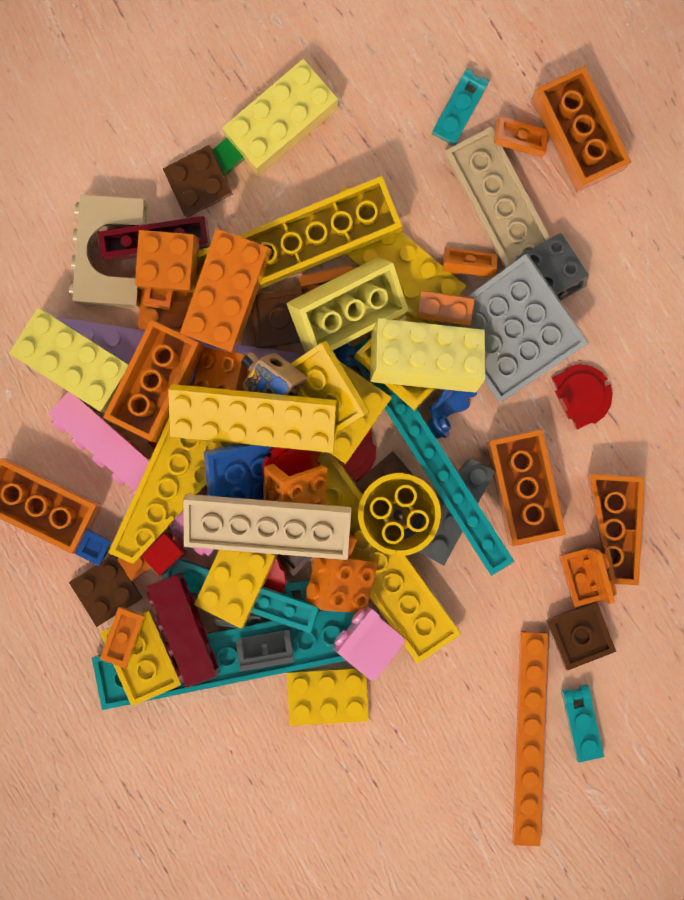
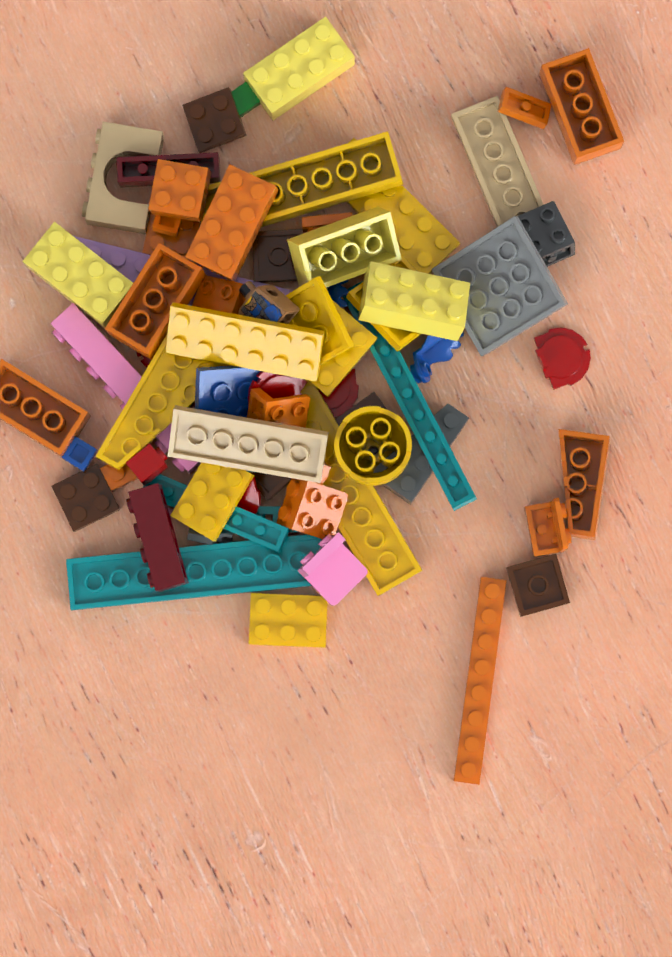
camera: 10 degrees right, 5 degrees down
(122, 637) = (100, 537): orange plate -> none
(150, 666) = (114, 561): yellow plate -> none
(265, 650) = (233, 566): dark grey hinge -> none
(446, 307) = (437, 260): orange plate -> none
(460, 108) = (470, 75): teal plate -> none
(469, 262) = (464, 220): orange plate -> none
(525, 488) = (497, 437): orange brick -> none
(582, 724) = (532, 671): teal plate -> none

